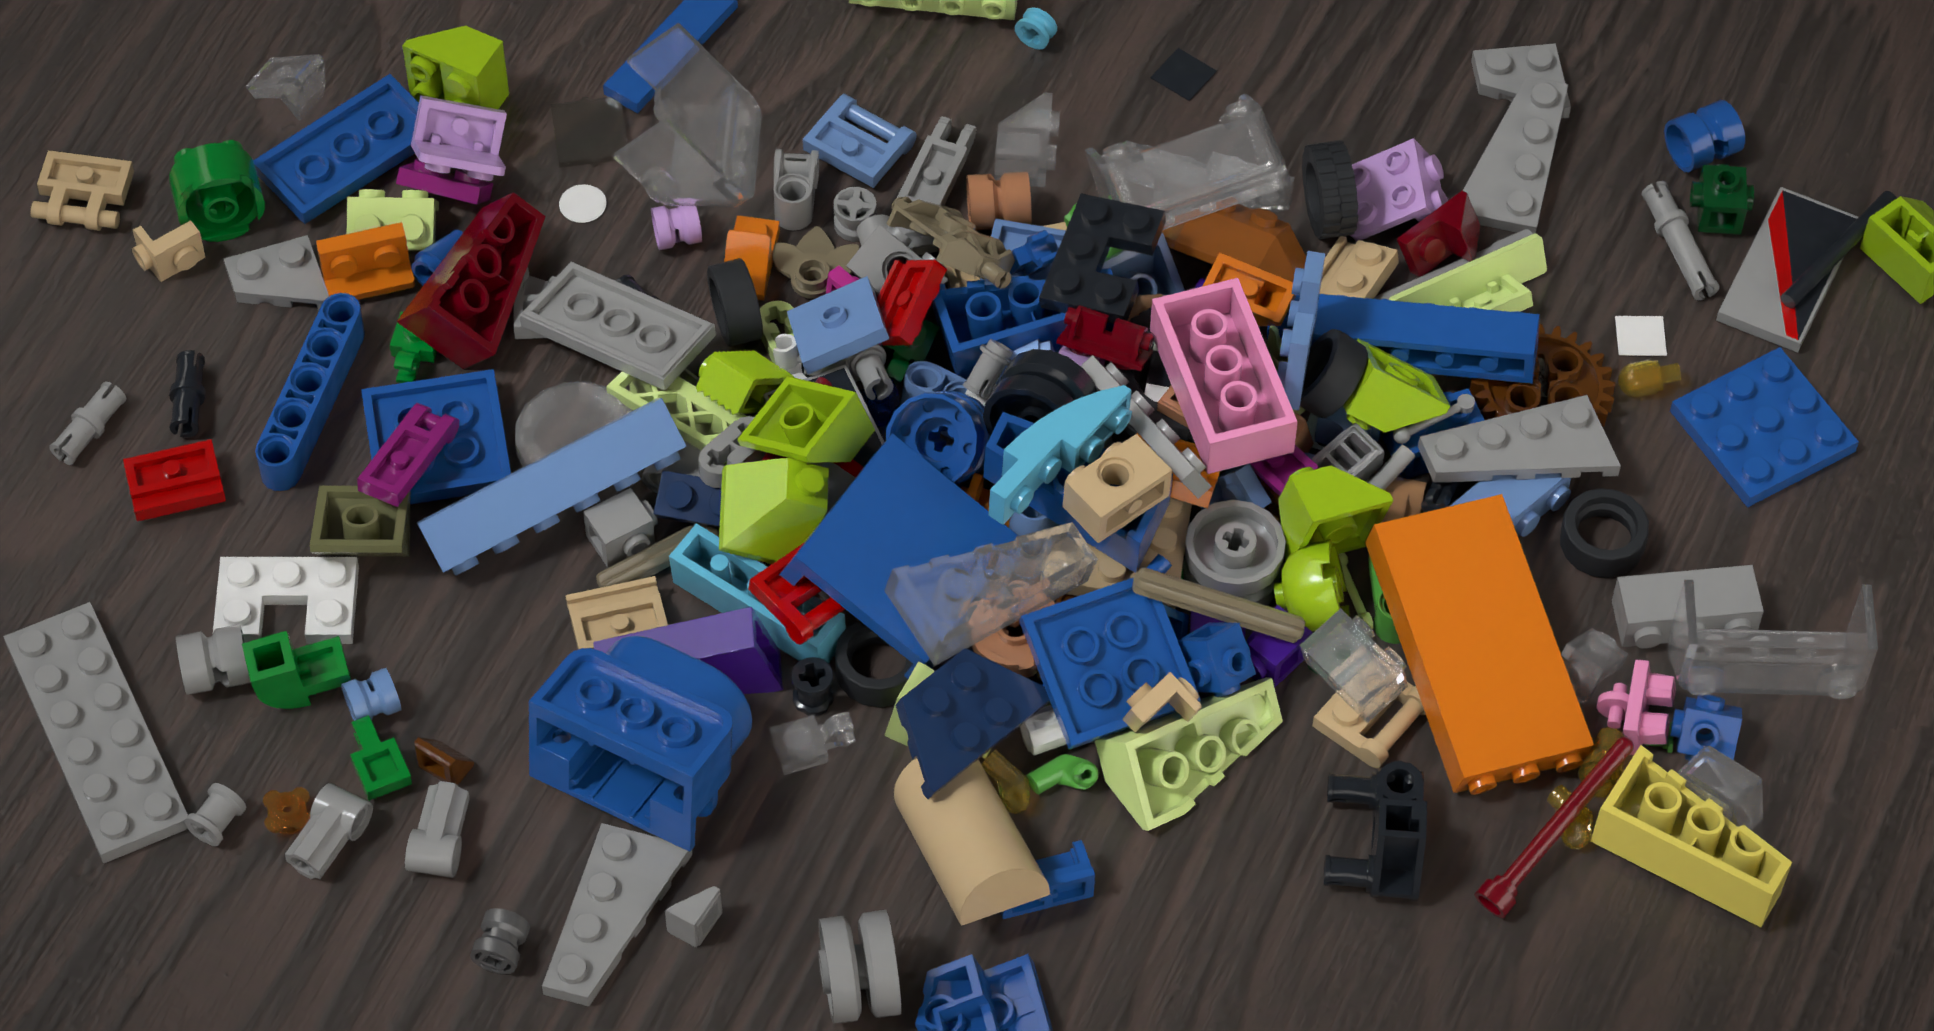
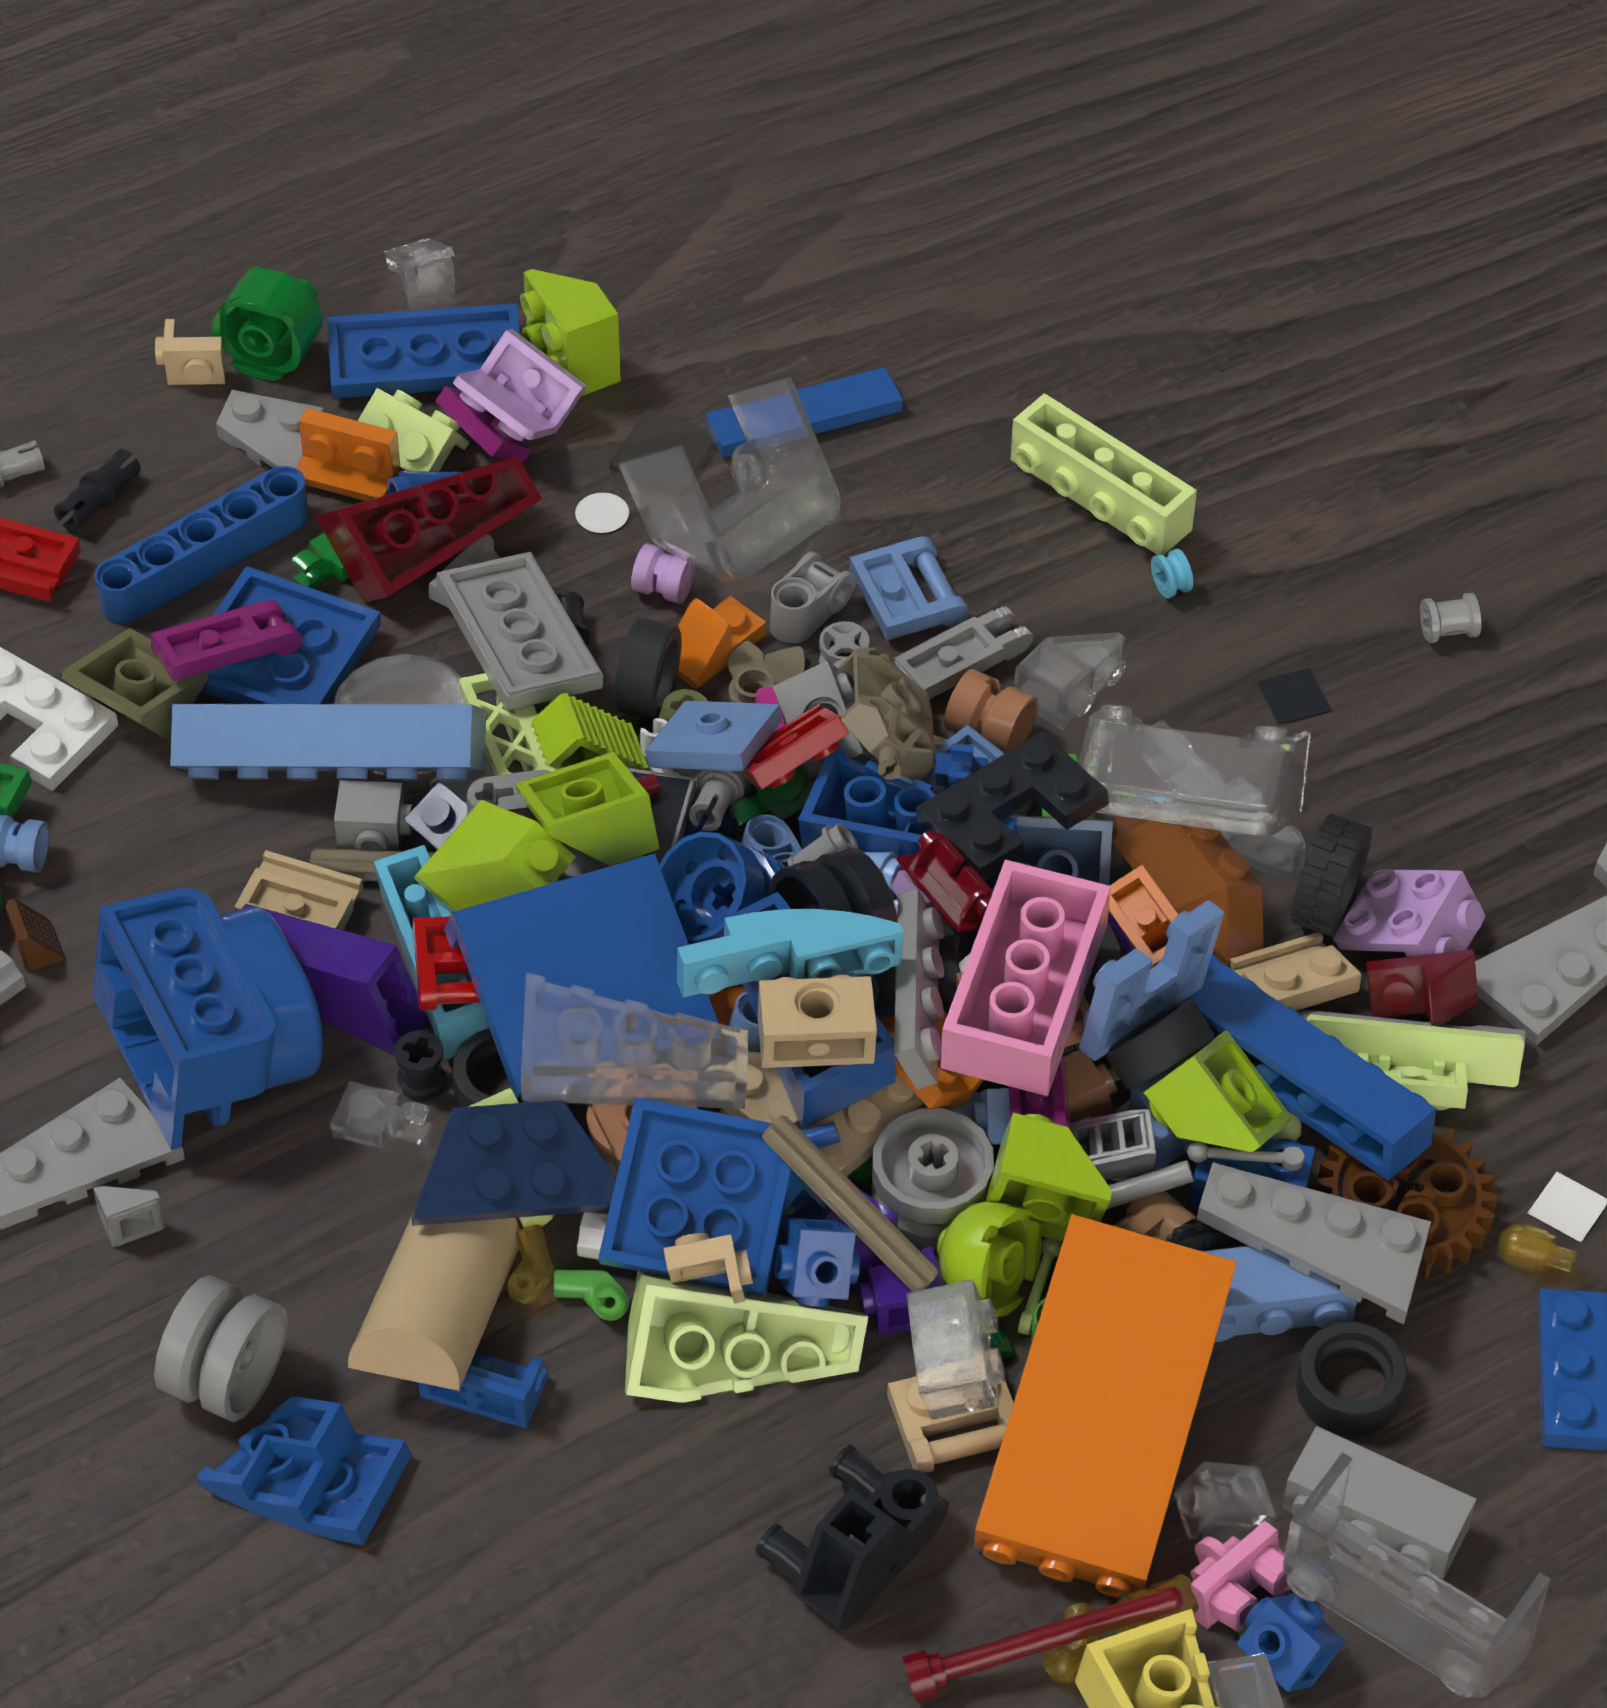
camera: 35 degrees right, 5 degrees down
(86, 179) = (175, 261): tan plate -> none

